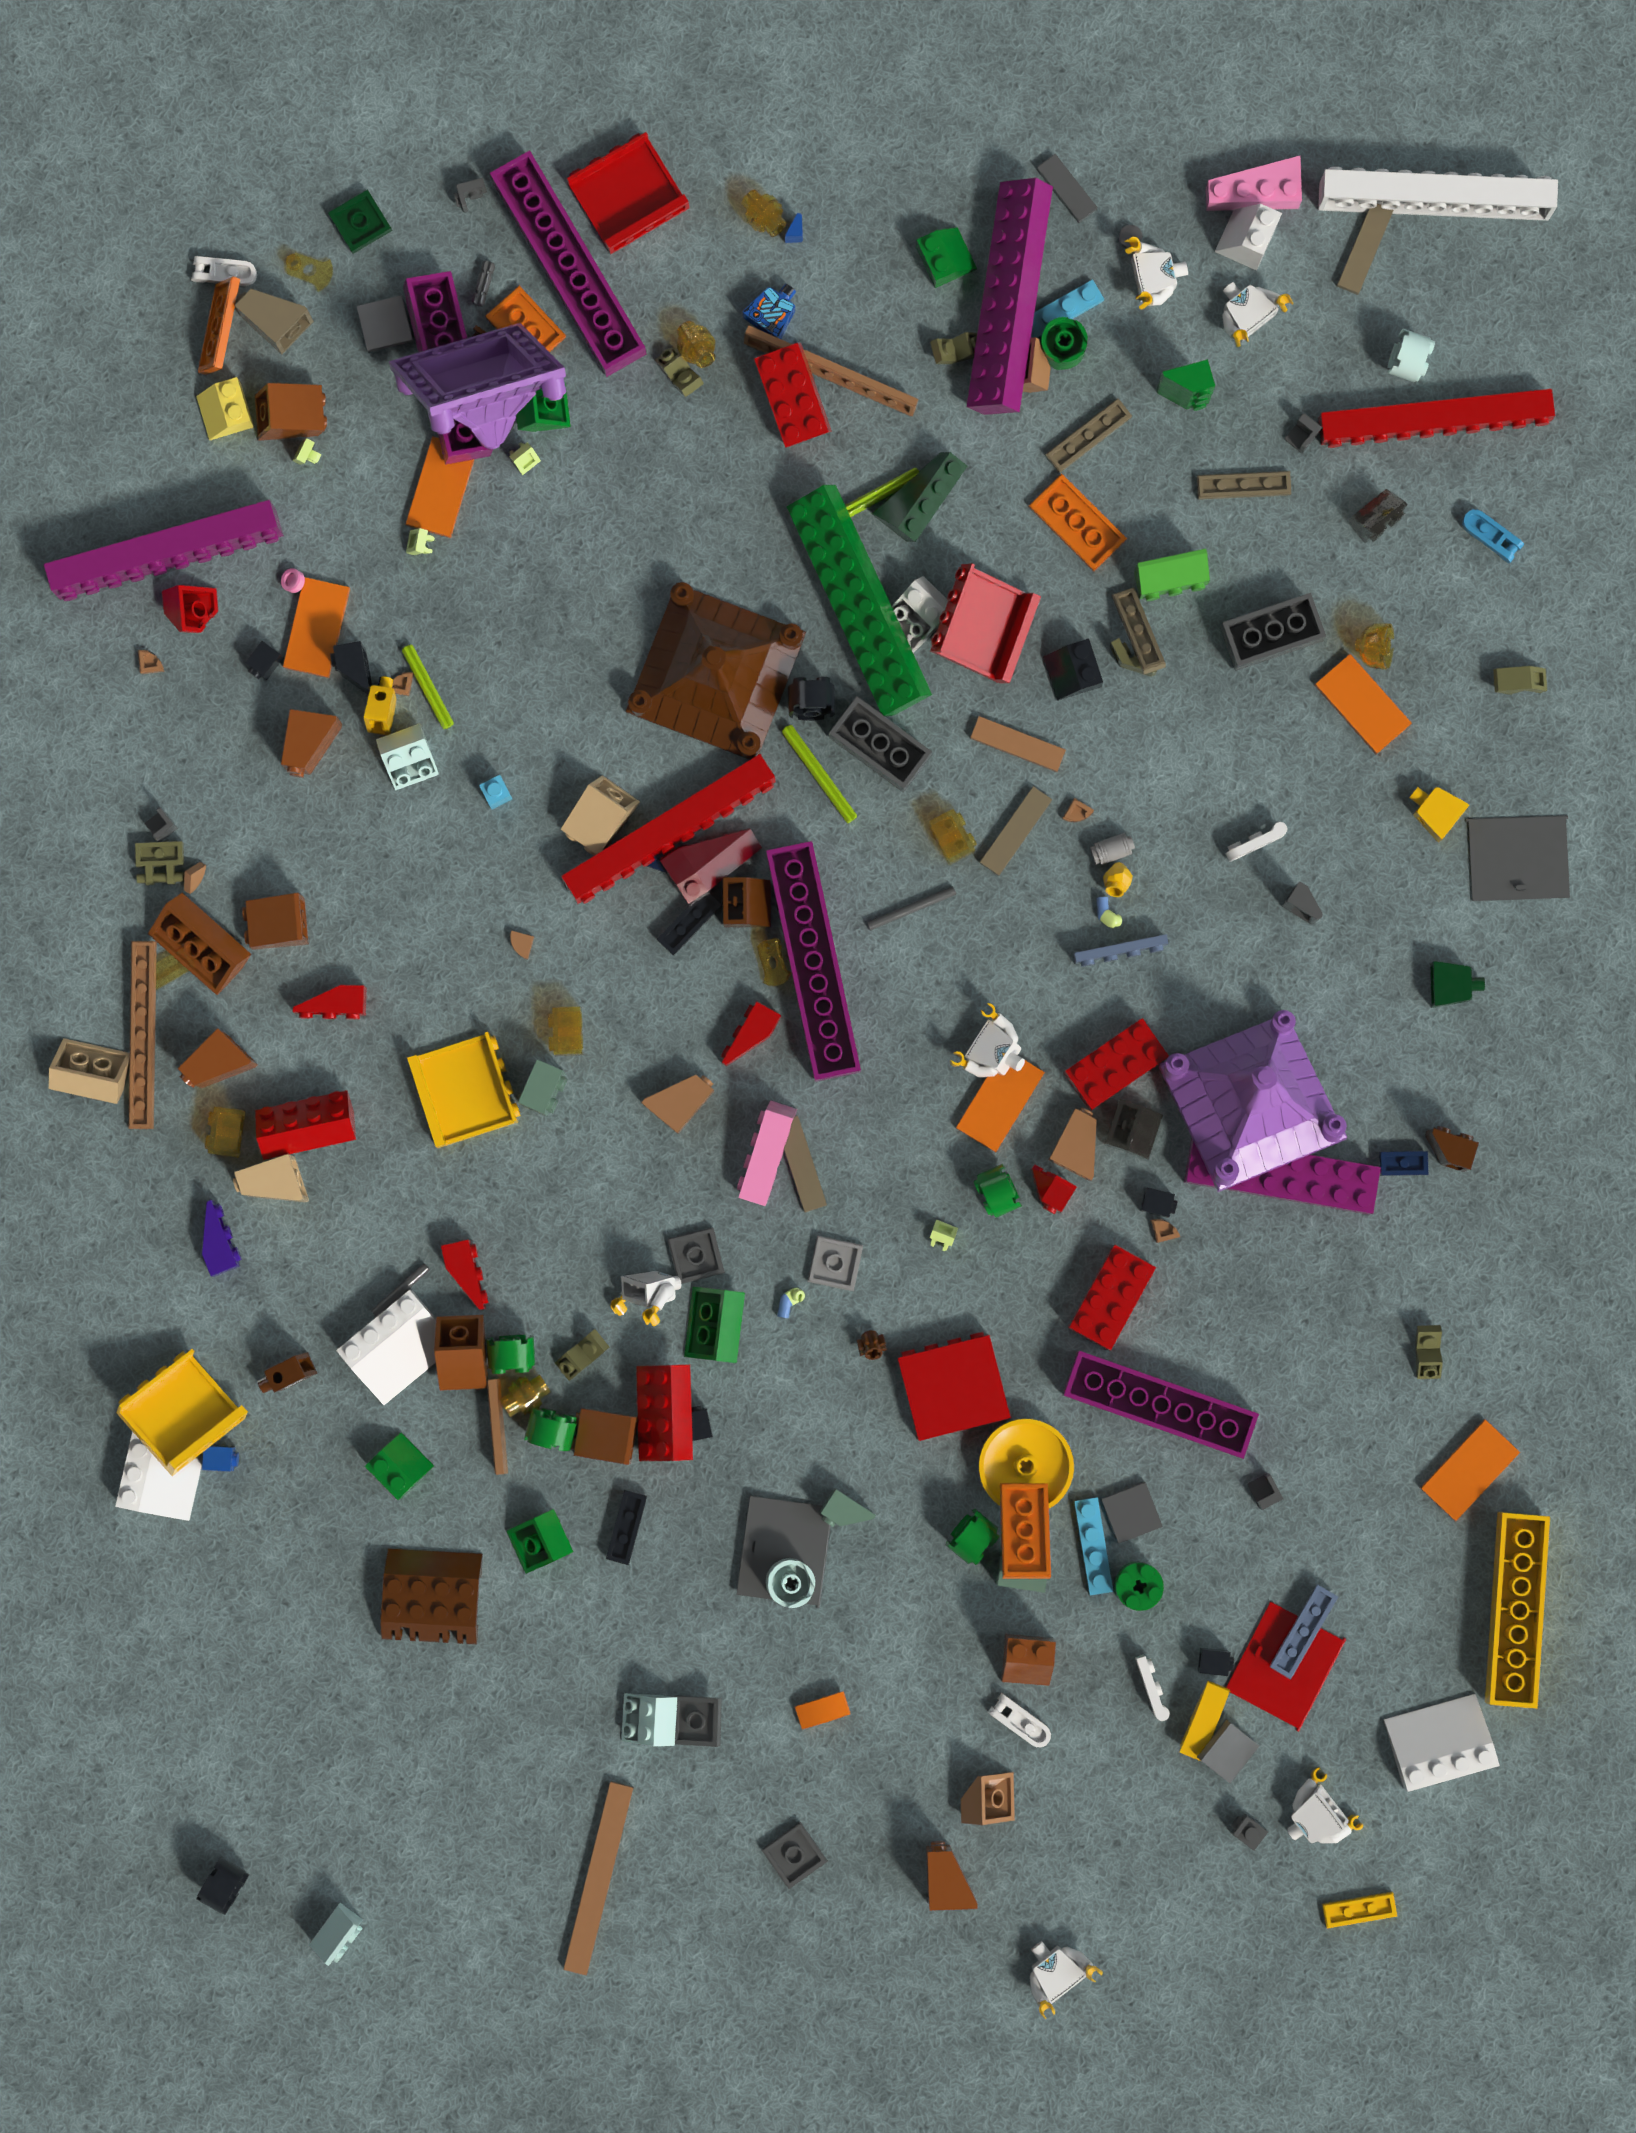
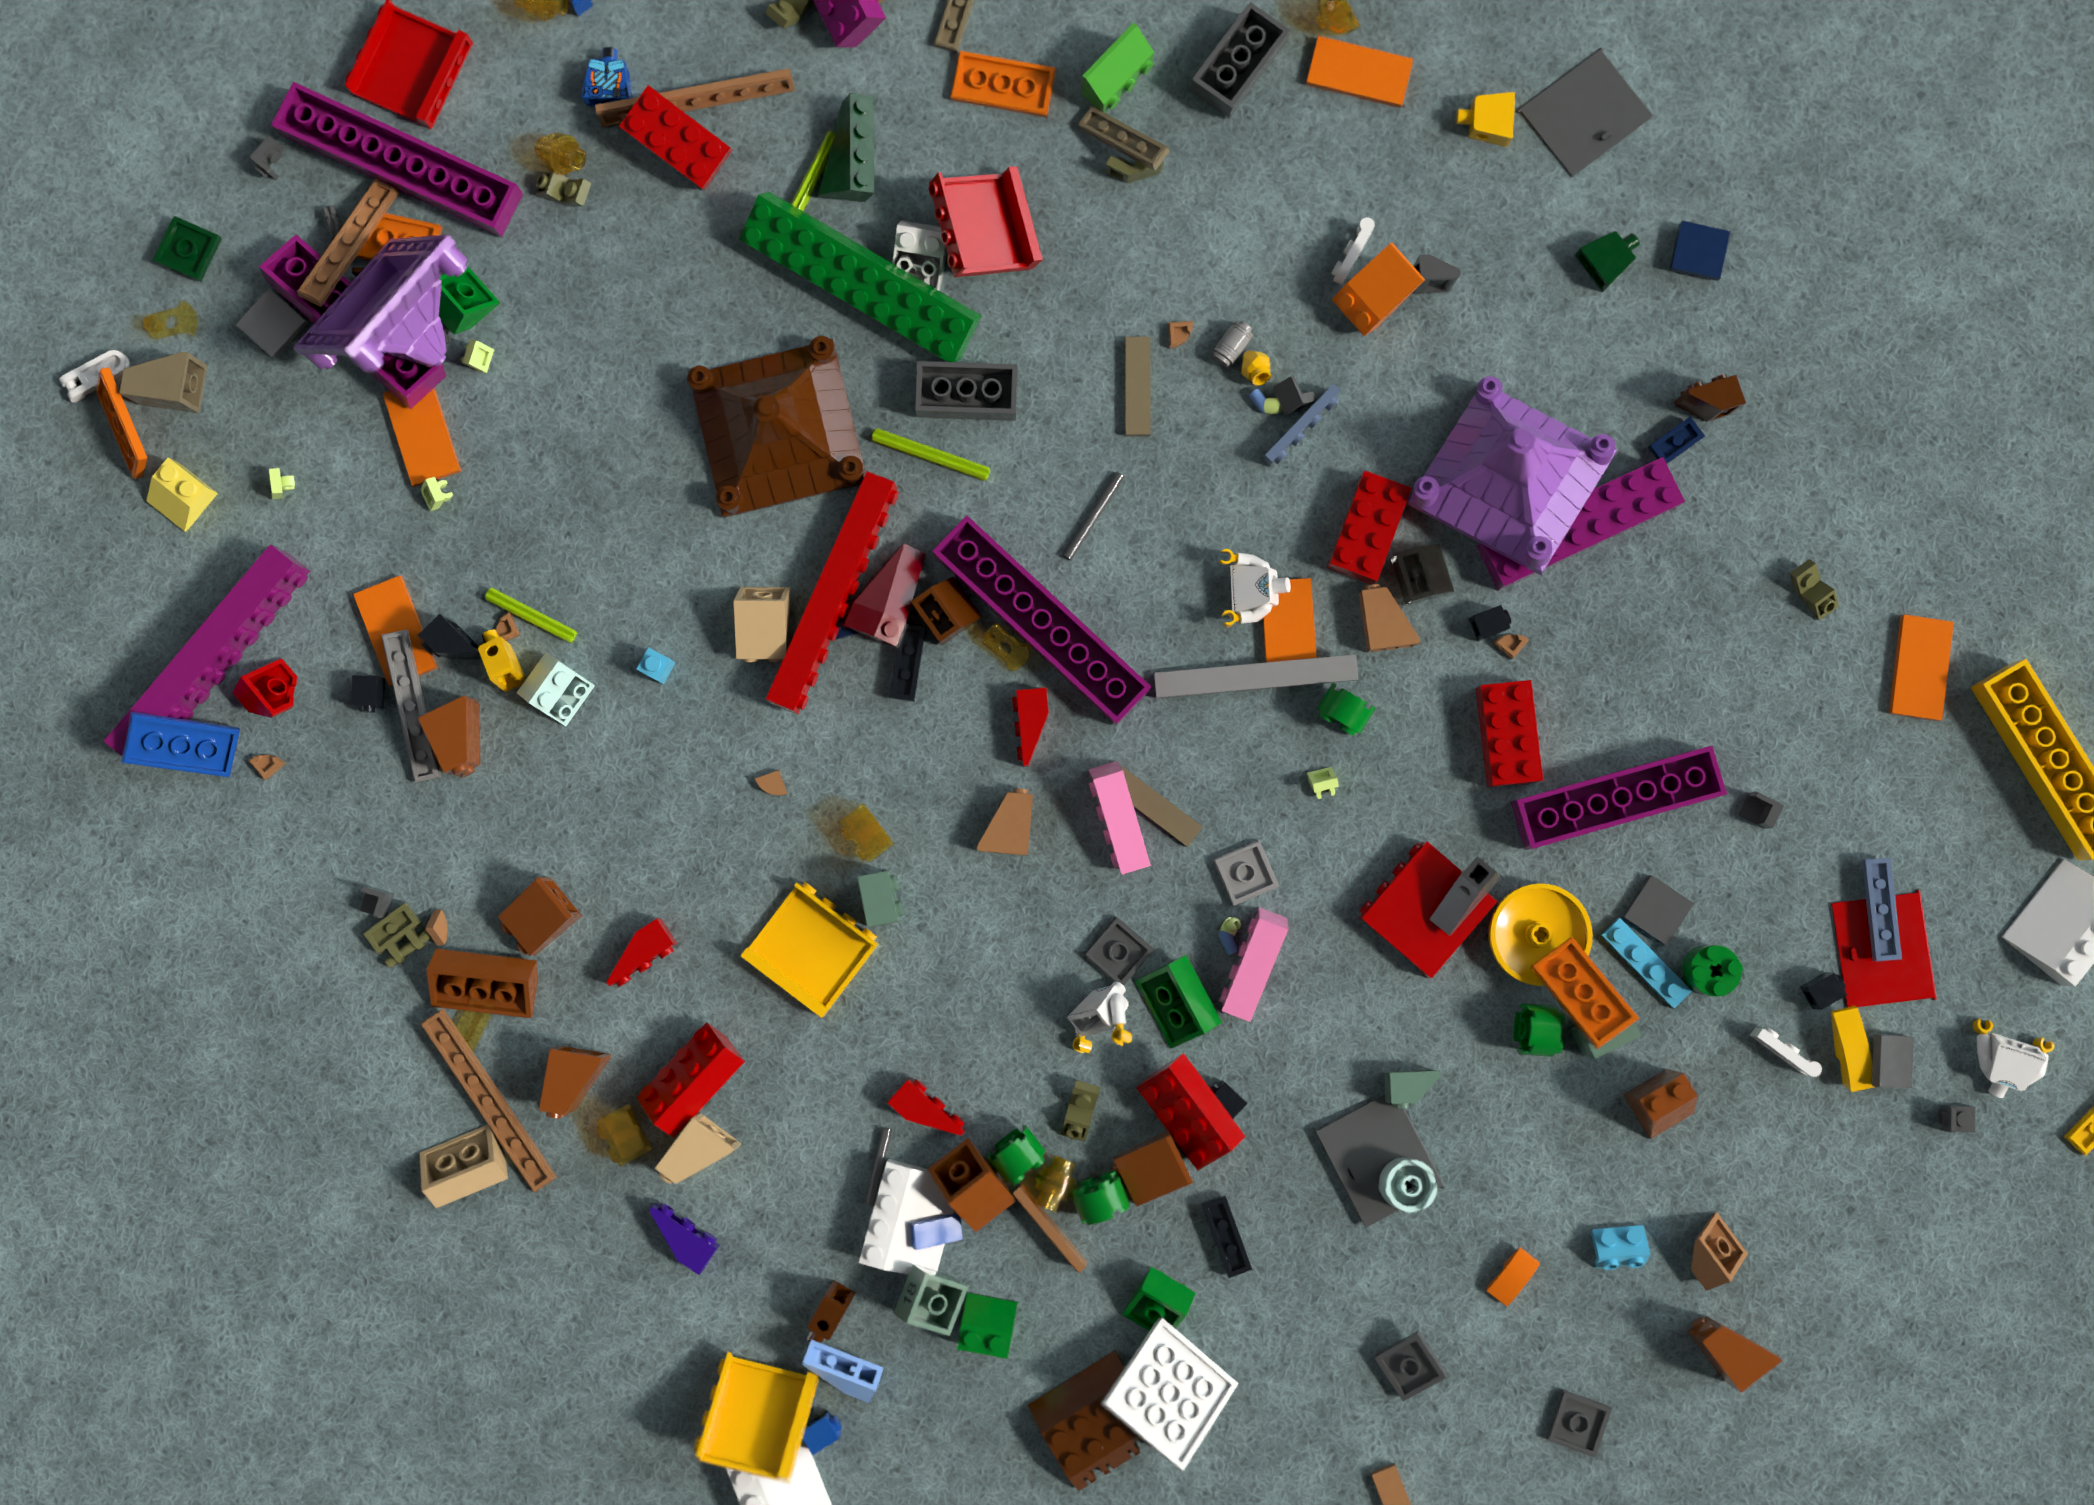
camera: 35 degrees left, 0 degrees up
(98, 605) = (180, 744): none -> blue tile
(268, 1423) = (843, 1371): none -> light blue slope
(289, 693) = (410, 704): none -> light grey tile
(290, 411) = (238, 456): dark orange slope -> none
(292, 580) = (345, 604): bright pink tile -> none
(370, 1416) = (931, 1300): none -> sand green brick
(410, 1368) = (936, 1231): none -> tile
(486, 304) = (347, 243): none -> medium nougat tile
(501, 1611) = (1170, 1394): none -> white plate
(649, 1719) = (1367, 1394): light aqua slope -> none
(792, 1336) = (1254, 965): none -> bright pink wedge
(811, 698) = (878, 392): black brick -> none
(871, 1345) = (1329, 922): reddish brown gear -> none
(919, 1745) = (1620, 1247): none -> medium azure bracket
(948, 1118) = (1256, 676): none -> light grey tile
(952, 836) = (1086, 428): clear yellow brick -> none
(987, 1394) = (1465, 895): none -> dark grey slope
(1018, 744) = (1086, 310): medium nougat tile -> none
(1021, 1722) = (1693, 1163): white plate -> none
(1052, 1189) = (1391, 675): red slope -> none
(1057, 1973) = (1884, 1364): white torso -> none
(1073, 670) = (1089, 211): black slope -> none
(1126, 922) = (1291, 397): none -> dark grey panel
(1250, 885) = (1378, 289): none -> orange slope
(1529, 1027) = (1699, 250): none -> dark blue tile

